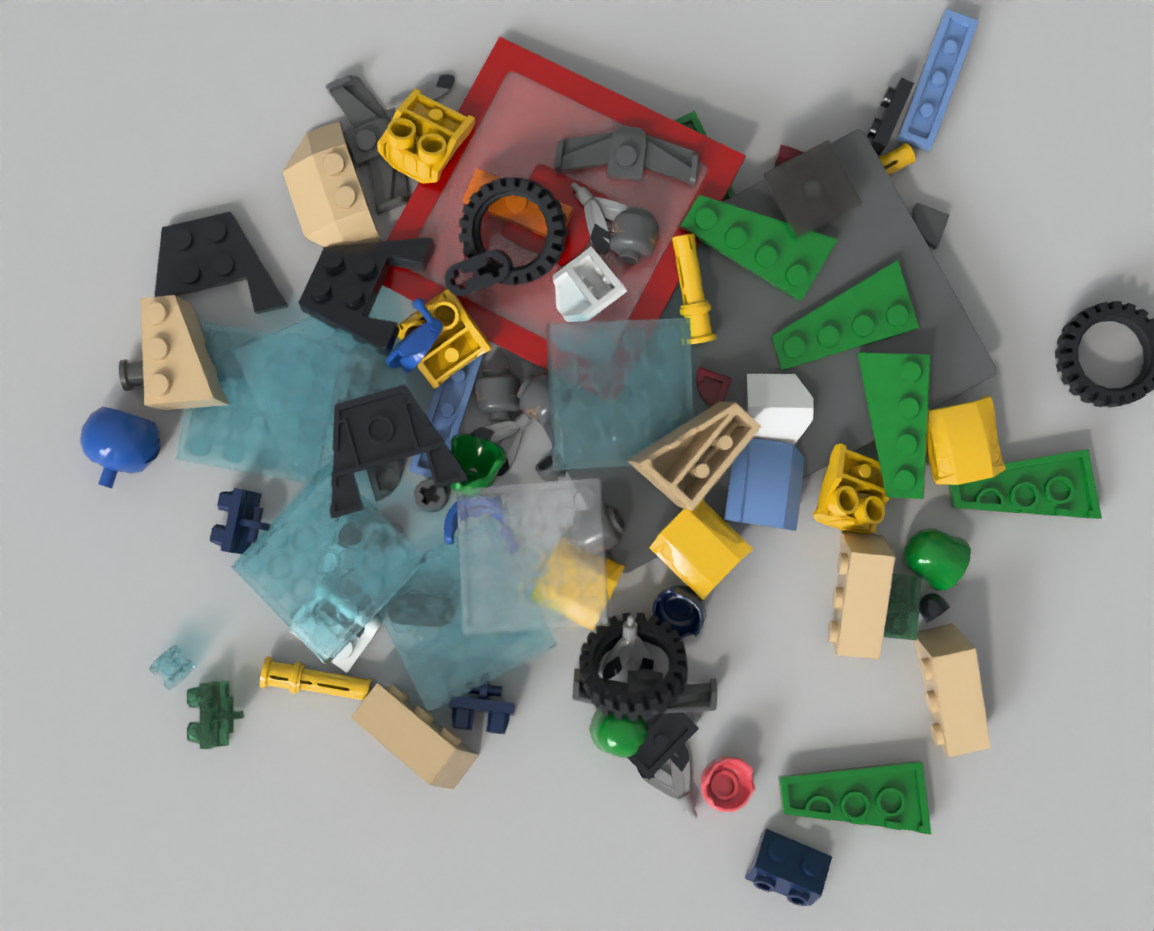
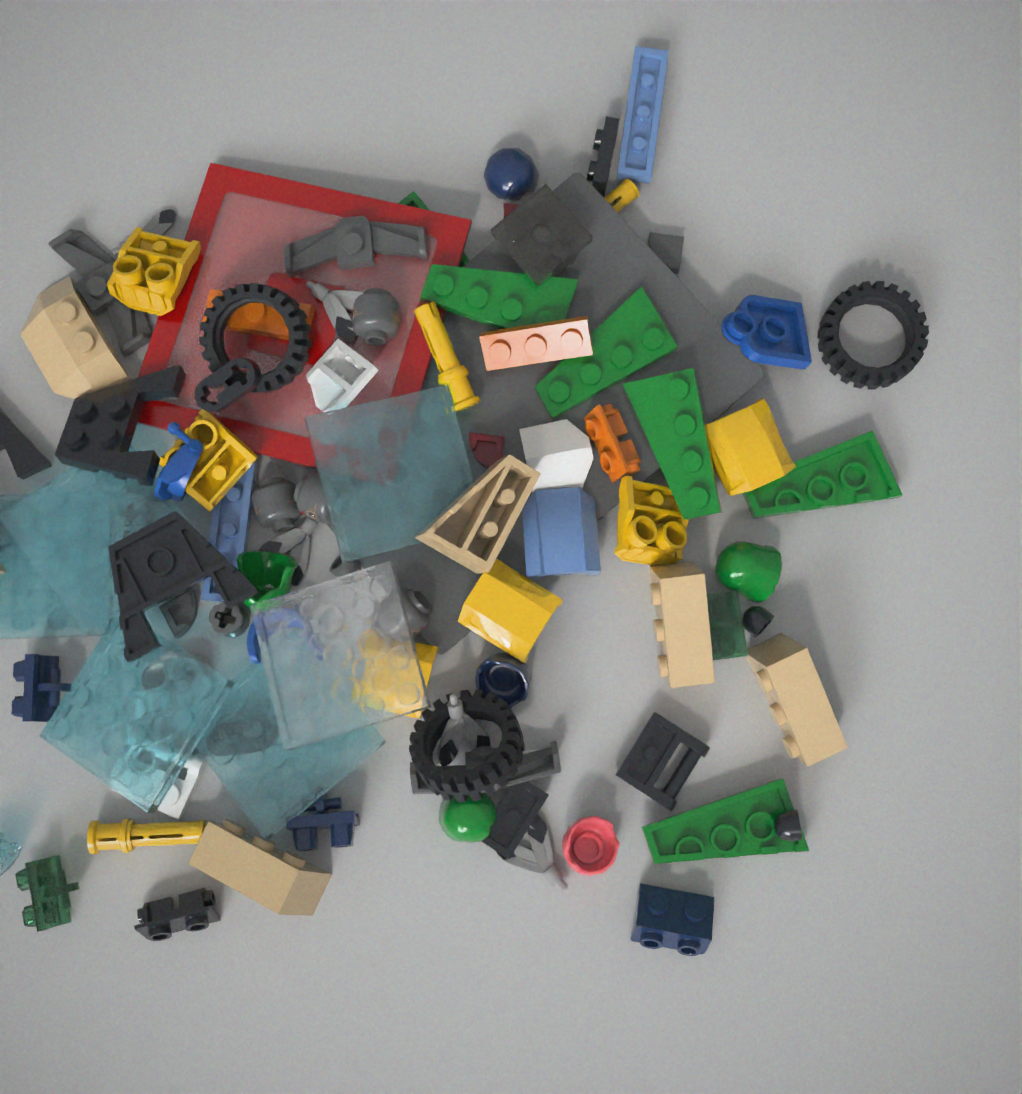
camera: 10 degrees left, 5 degrees down
(315, 763) = (160, 919): none -> black hinge
(783, 295) = (536, 343): none -> plate
(793, 113) = (510, 174): none -> dark blue hair
(804, 711) = (652, 753): none -> black plate
(829, 392) = (616, 457): none -> orange hinge
(917, 807) = (788, 826): none -> black hinge
(1011, 330) = (769, 331): none -> blue plate

